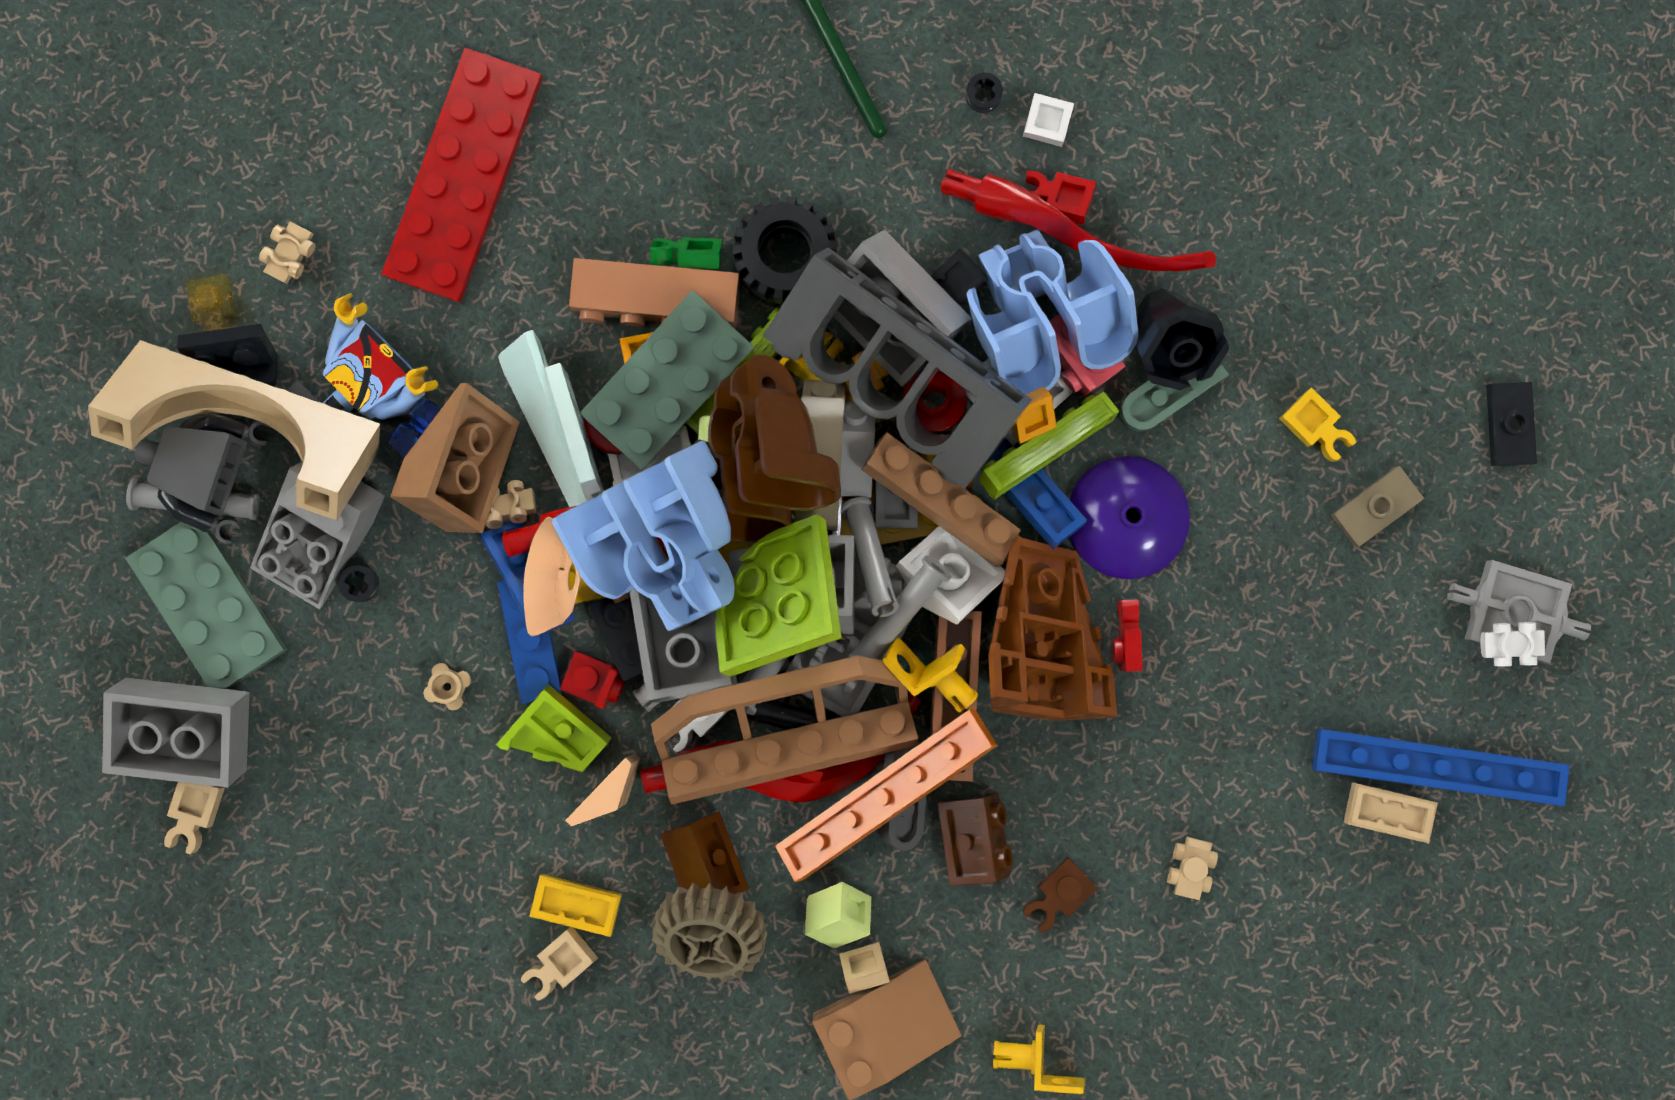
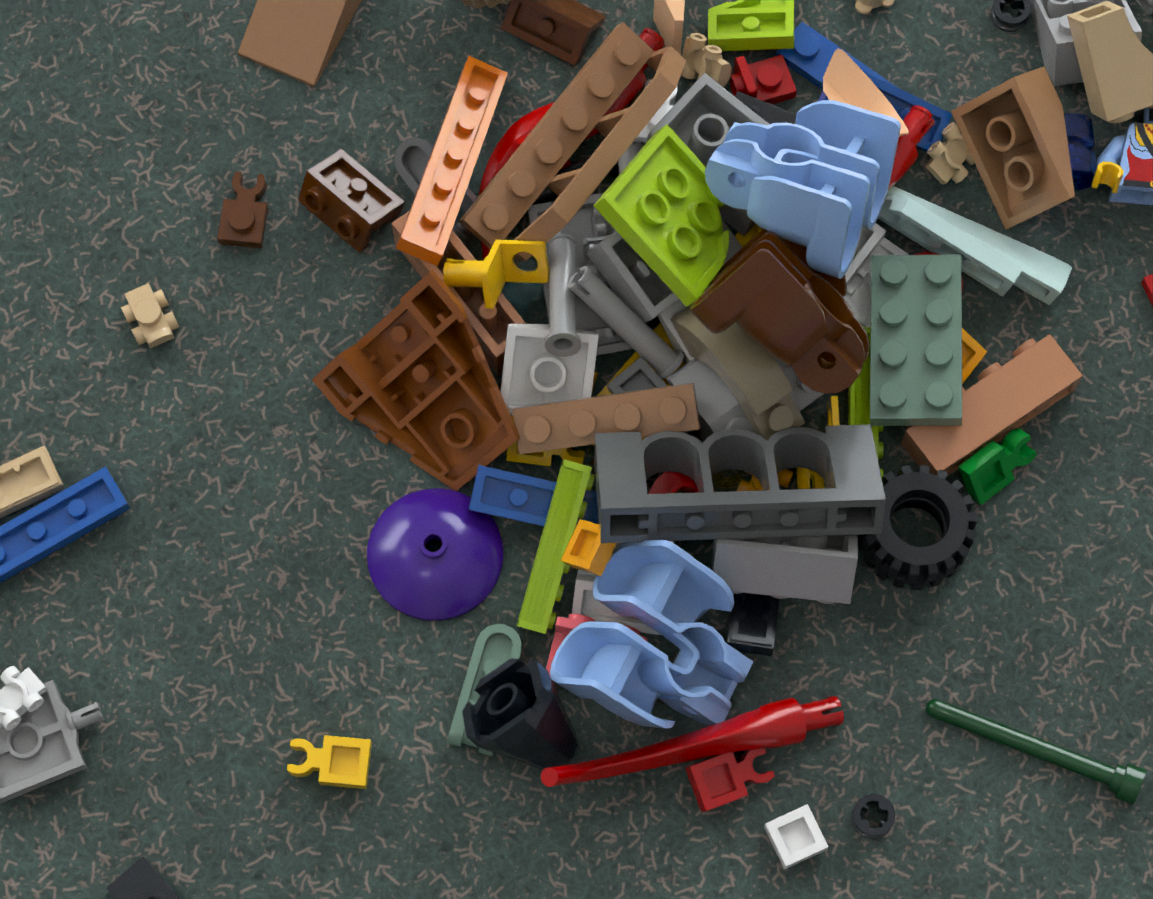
camera: 140 degrees right, 15 degrees down
(622, 728) = (704, 59): none -> tan piece
(838, 915) = (412, 60): yellowish green panel -> none
(864, 968) = (358, 37): tan plate -> none
(1032, 1058) = (164, 75): yellow bracket -> none
(1128, 646) = (348, 441): red plate -> none
(1377, 506) = (222, 736): dark tan plate -> none

